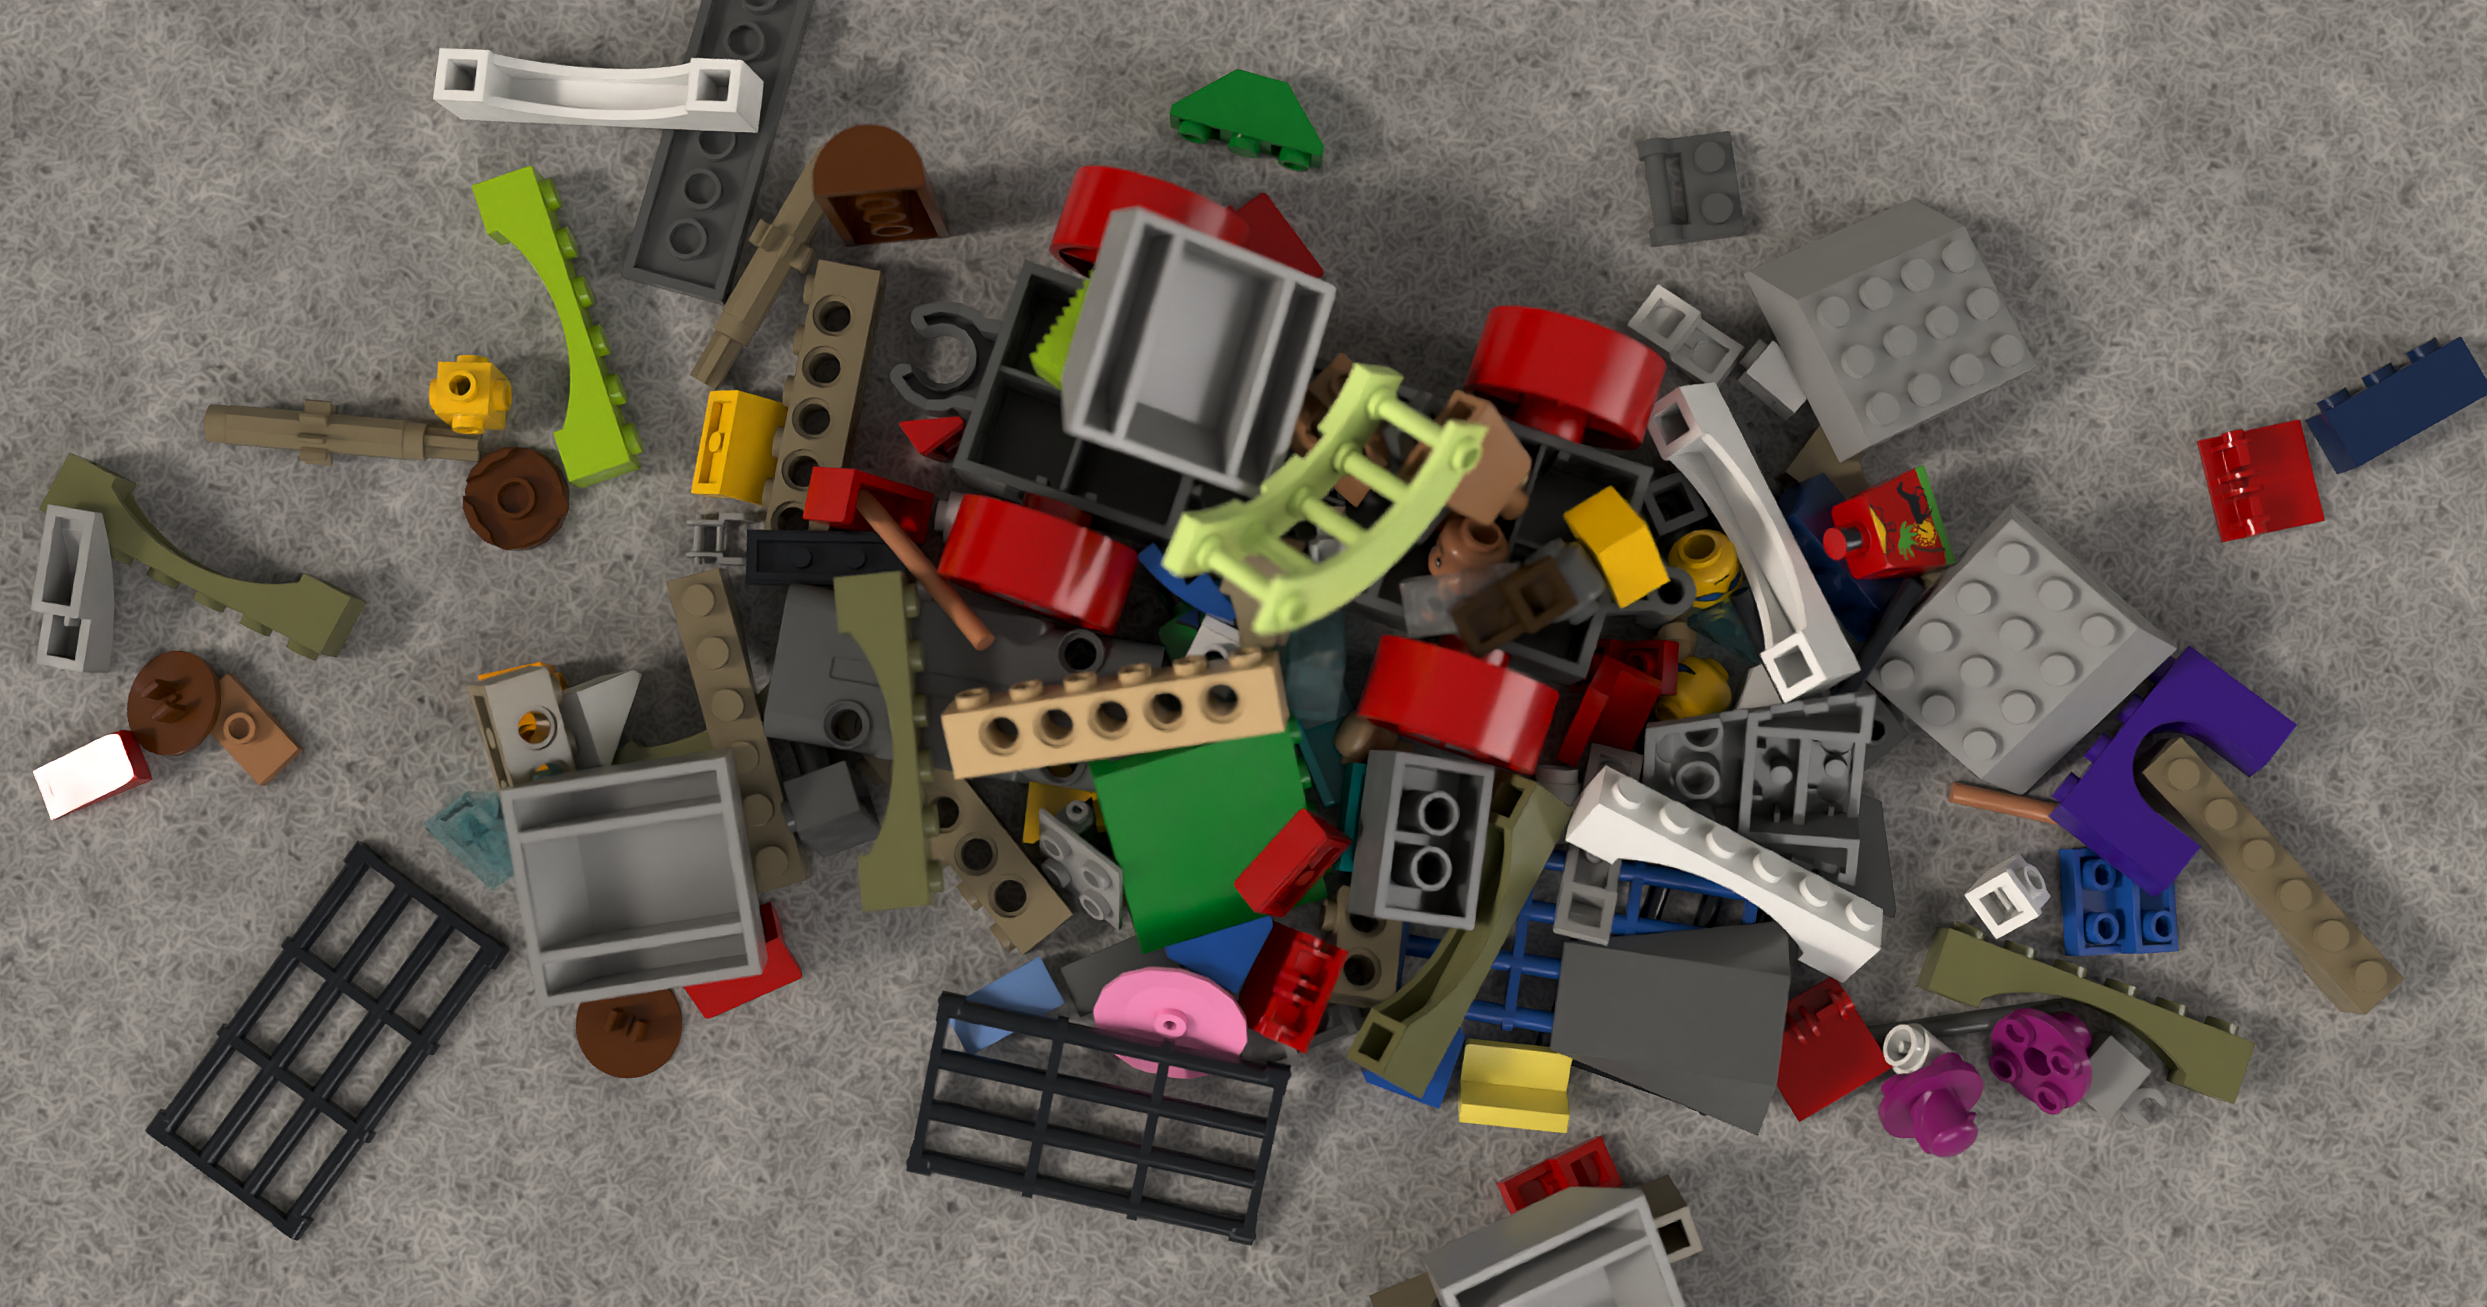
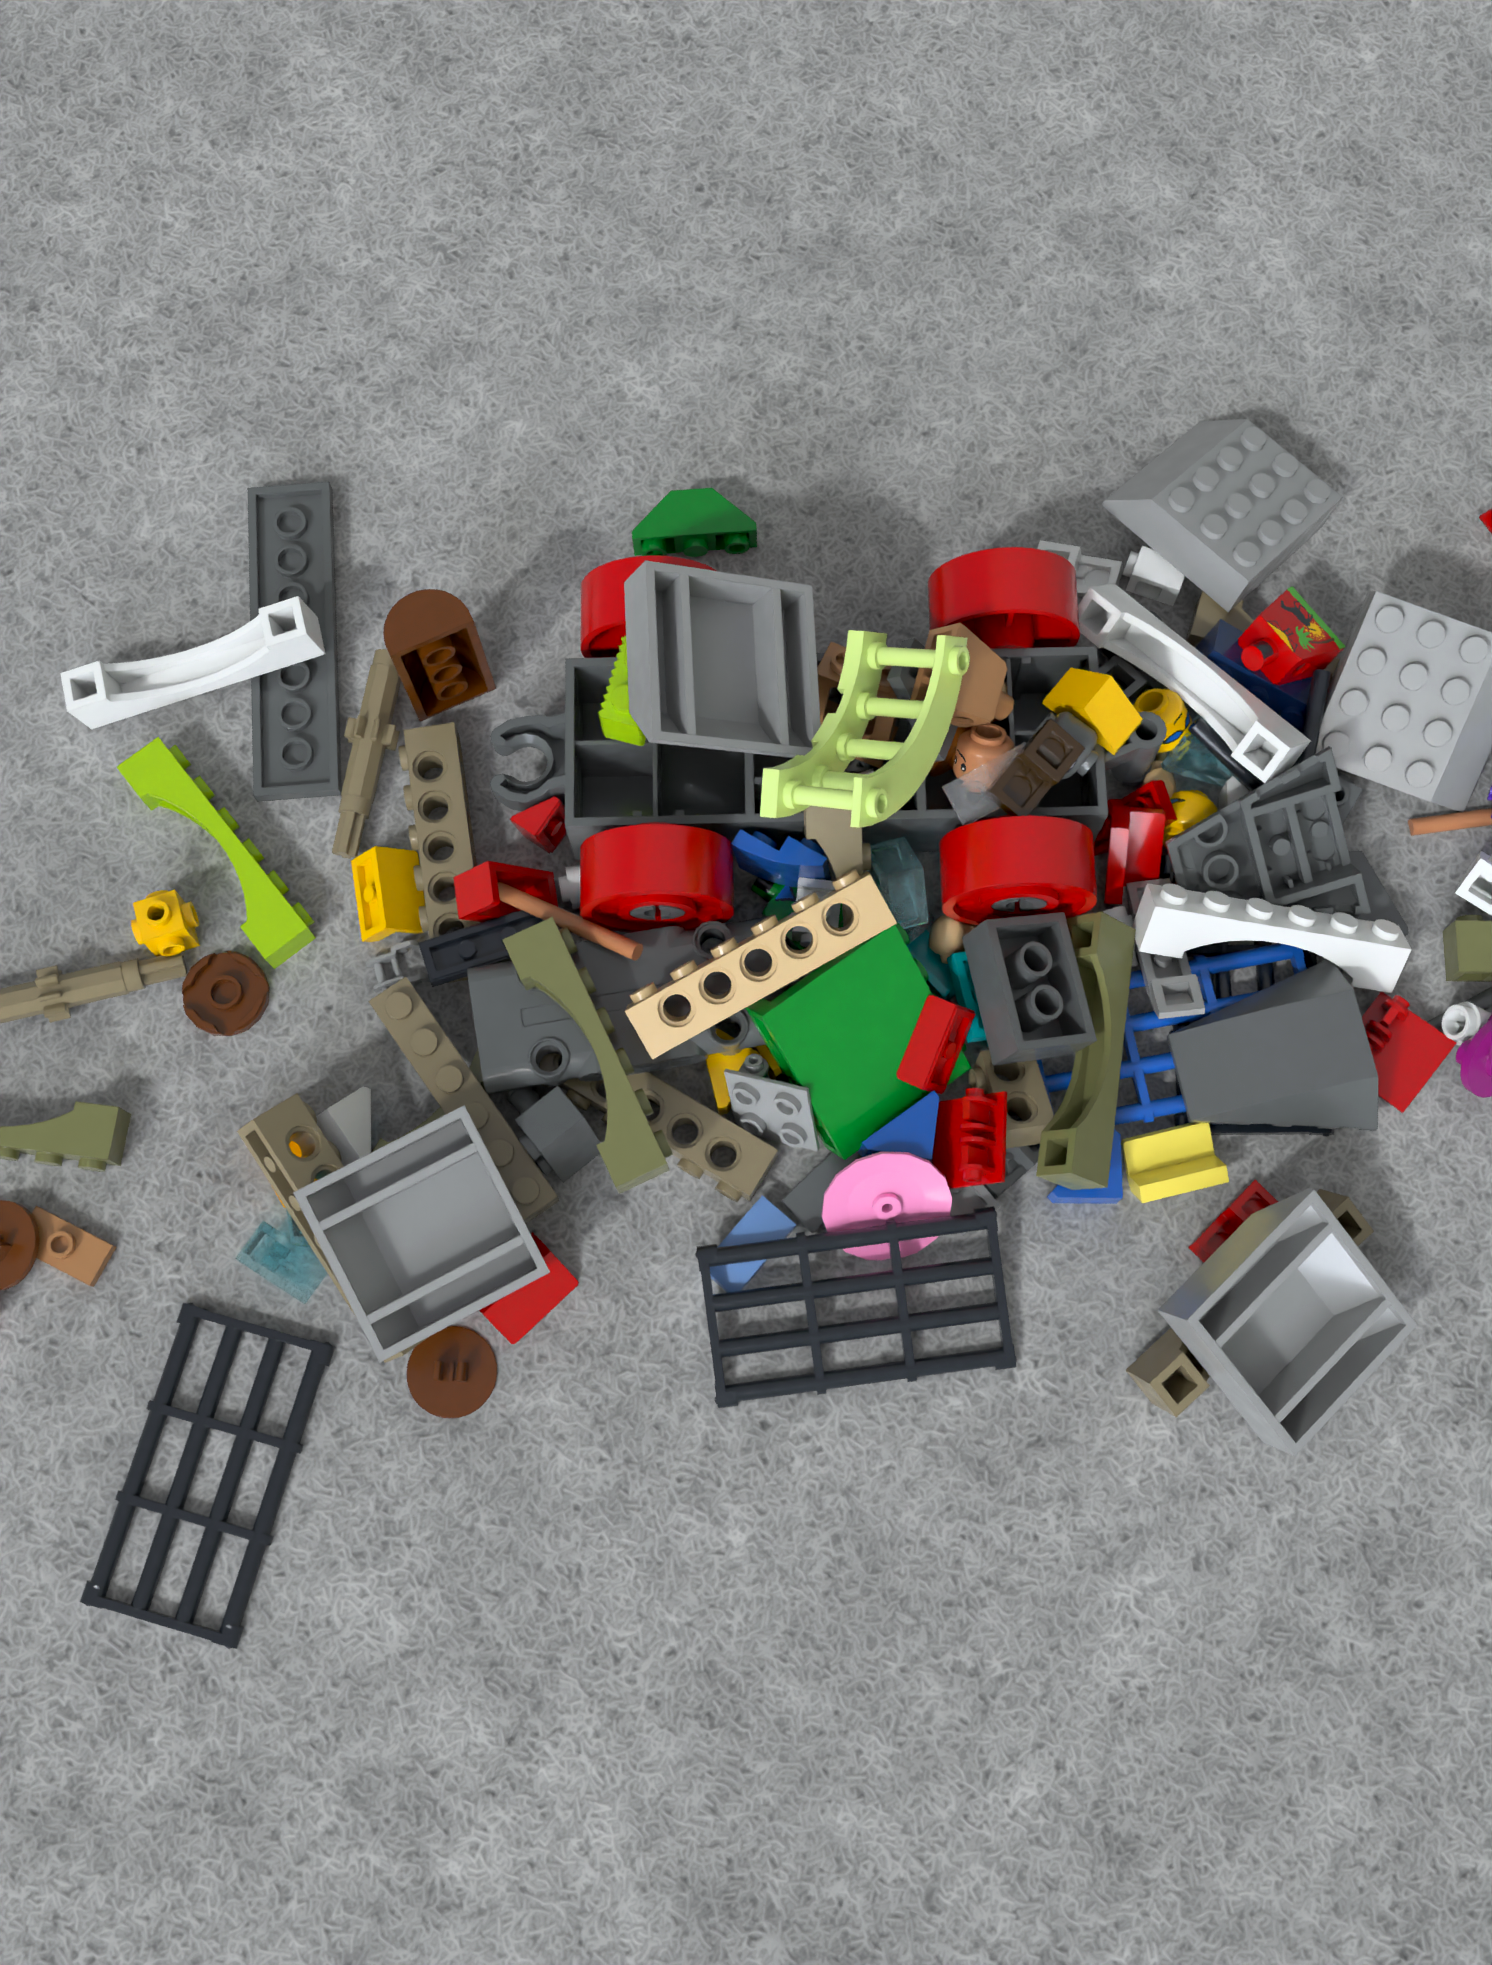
camera: 15 degrees left, 10 degrees down
(1707, 184) = (1047, 461): dark grey plate -> none

